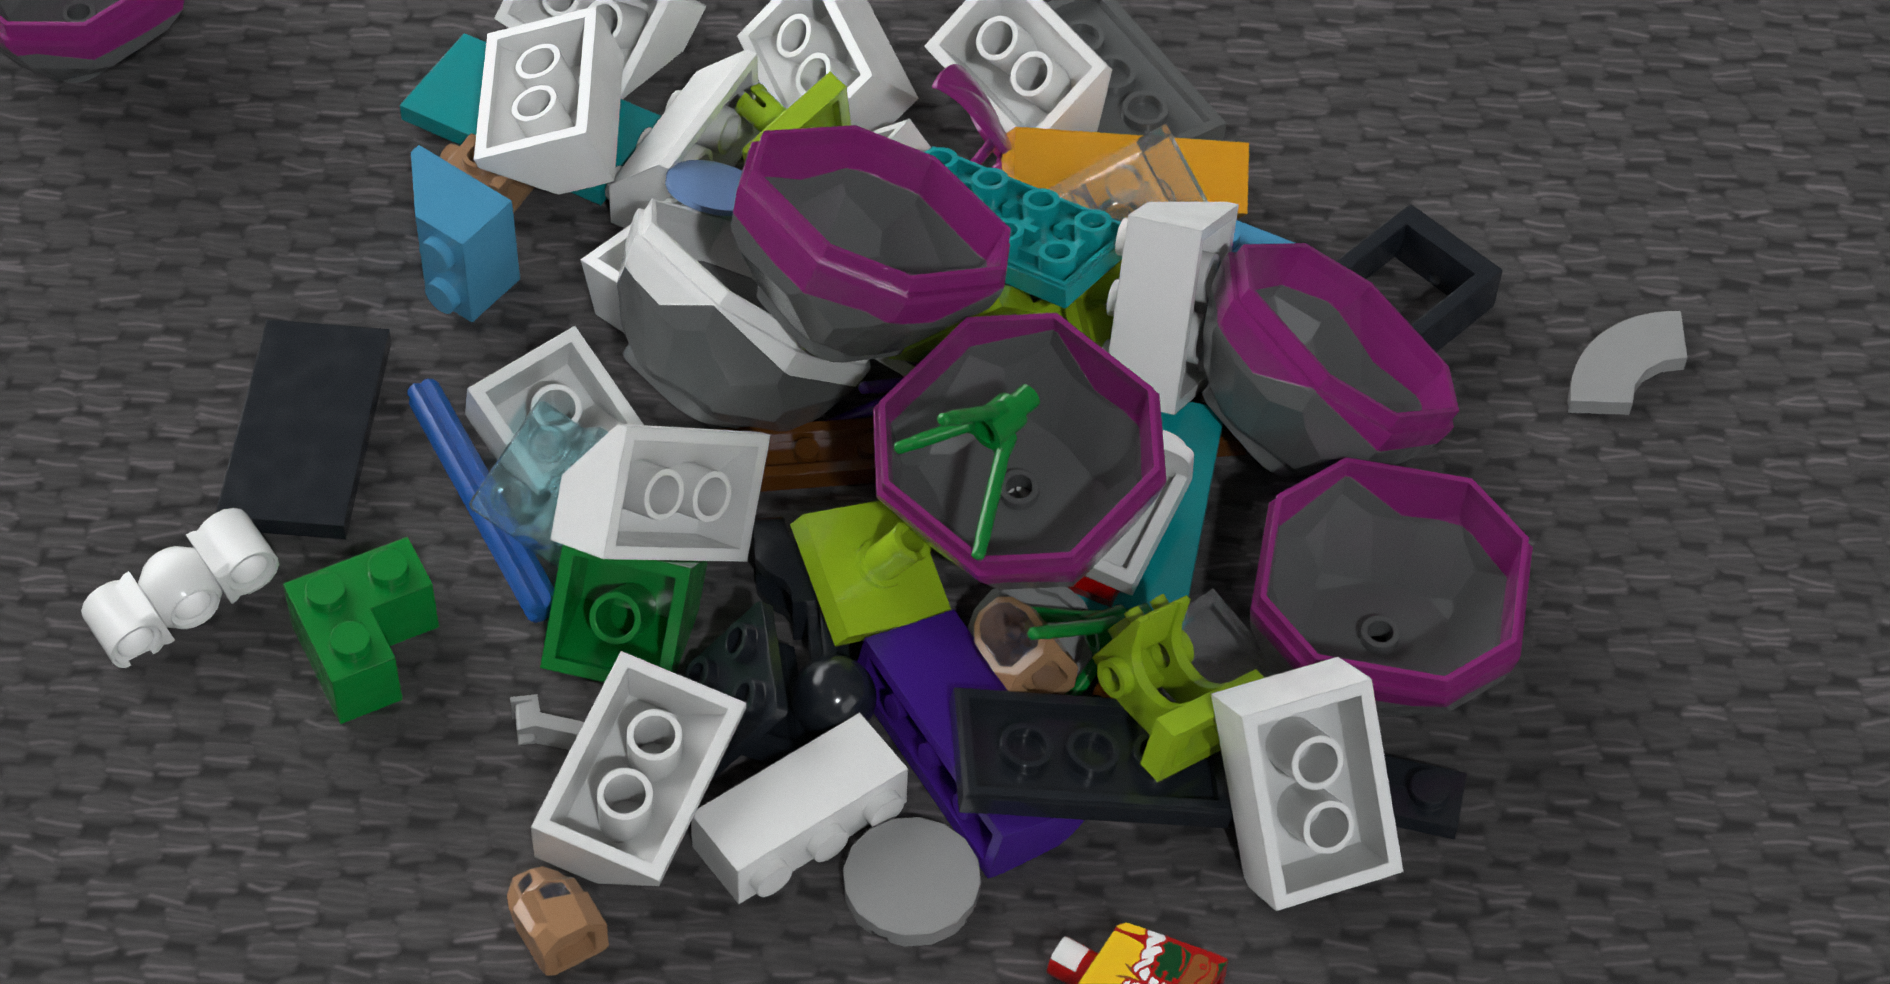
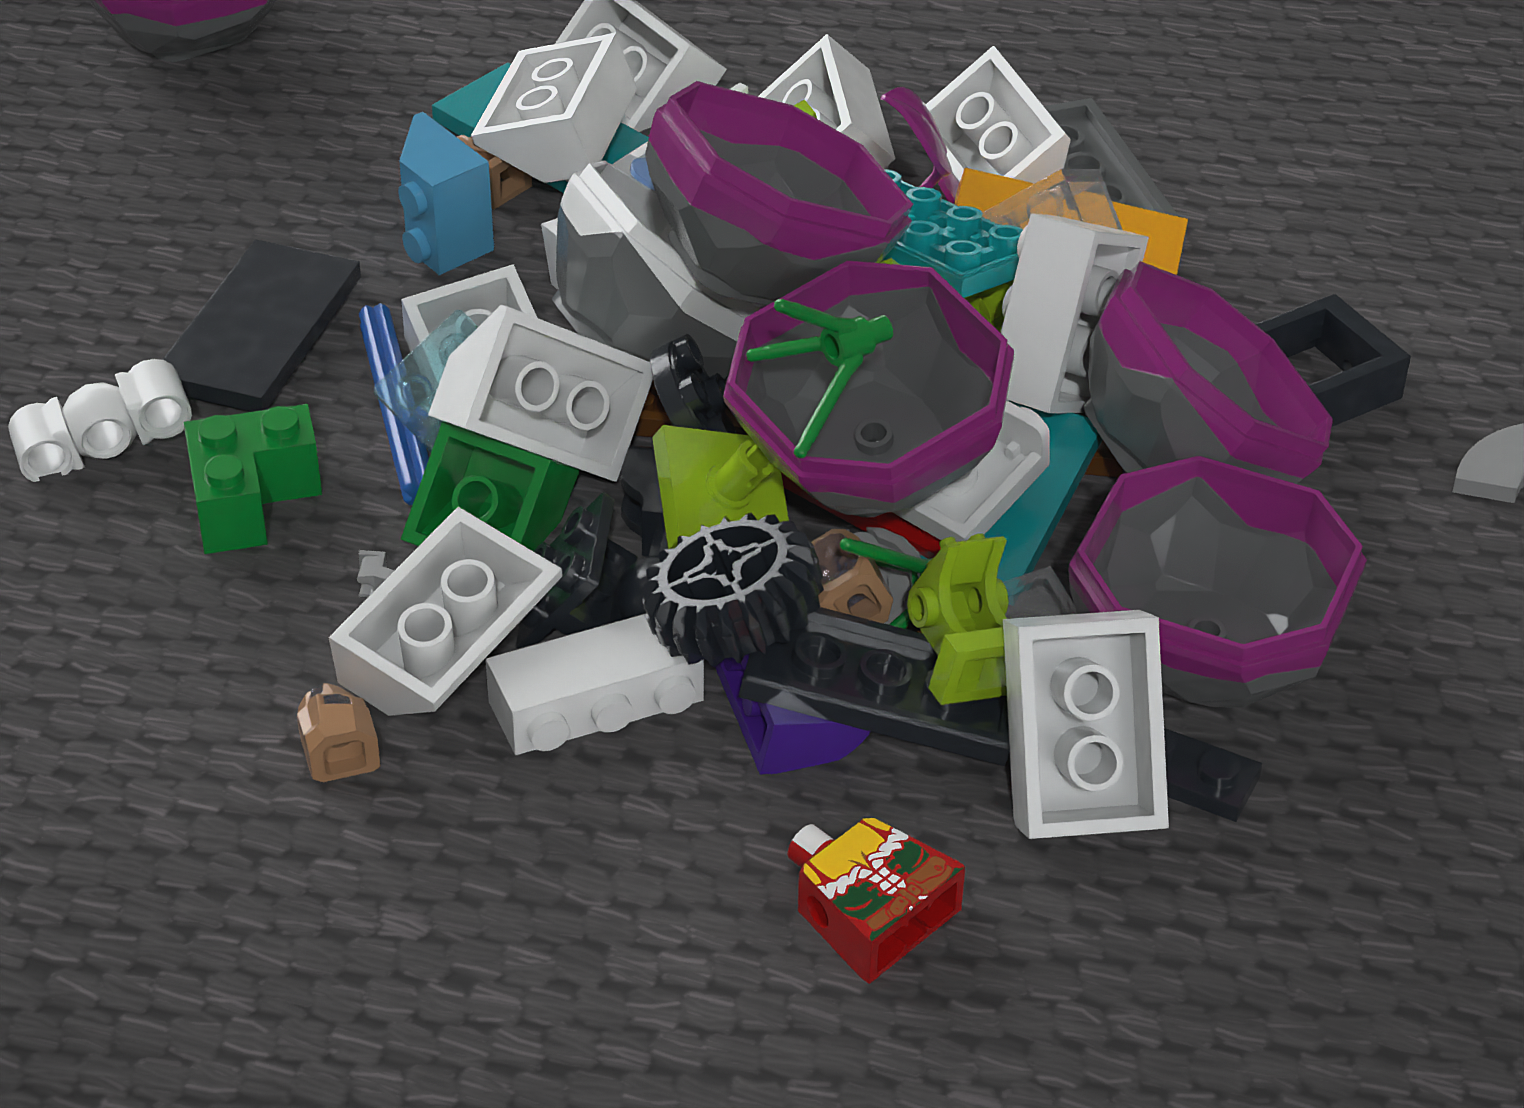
camera: 15 degrees right, 10 degrees down
(810, 457) = (687, 390): none -> black tile
(909, 732) = (732, 589): none -> black gear
(911, 881) = (684, 762): light grey tile -> none

